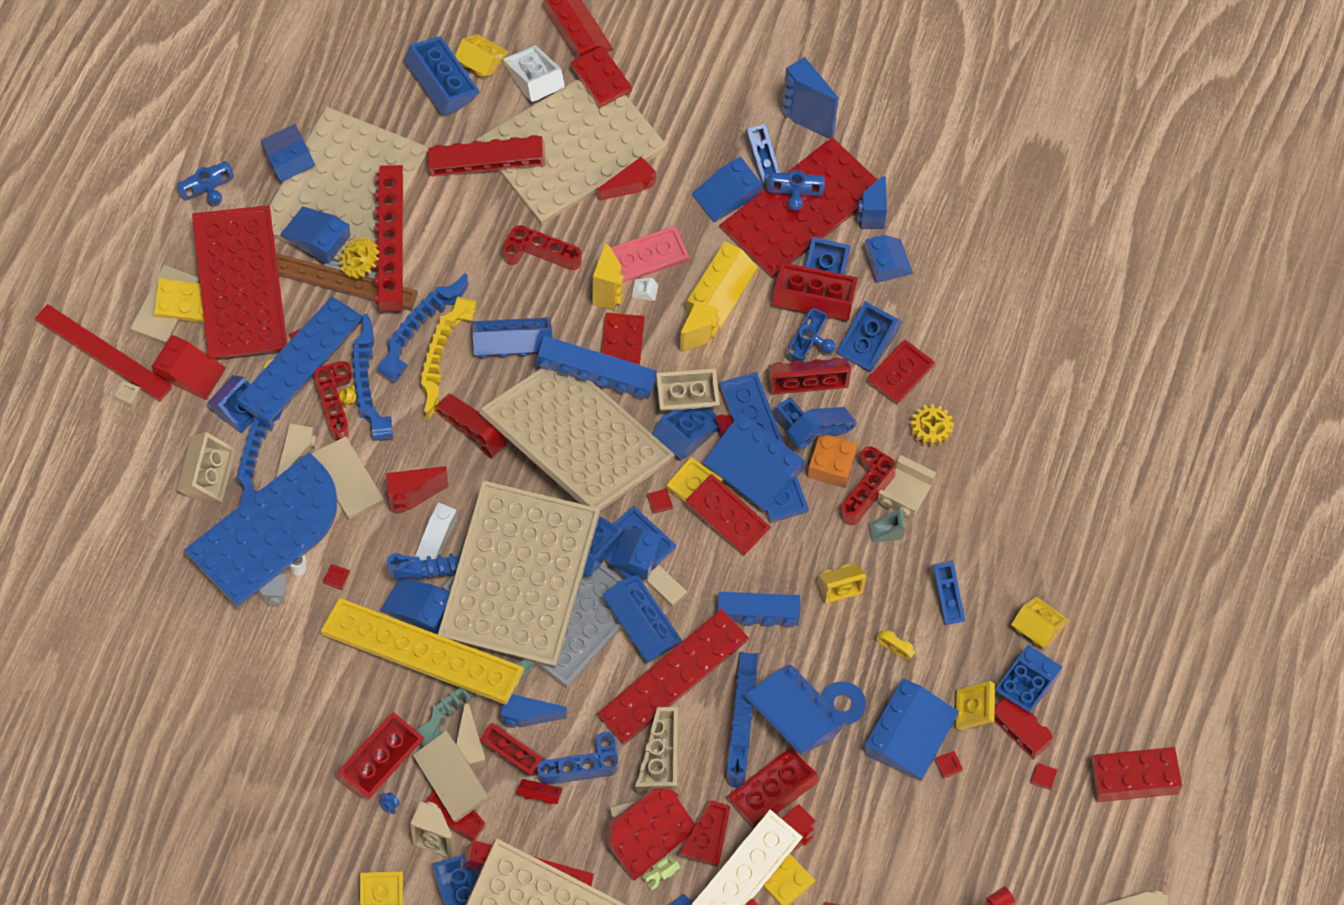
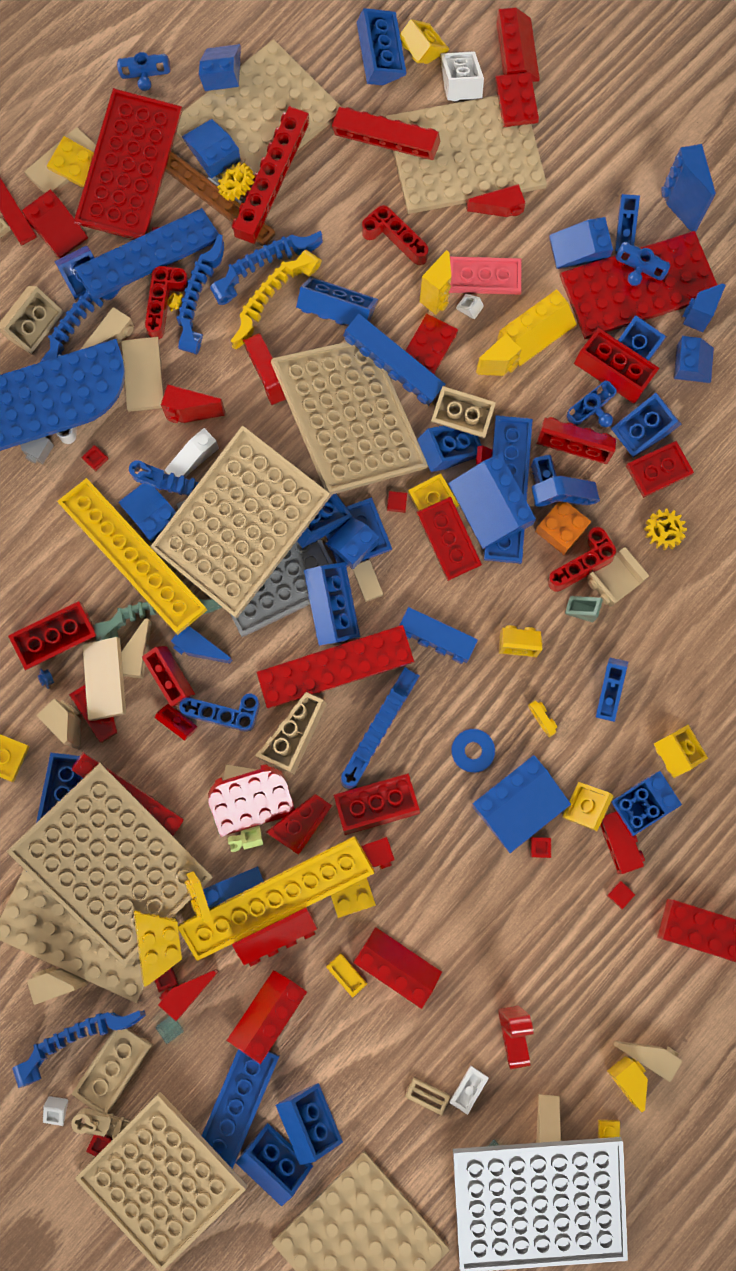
camera: 25 degrees right, 15 degrees up
(796, 709) = (425, 745): blue slope -> none

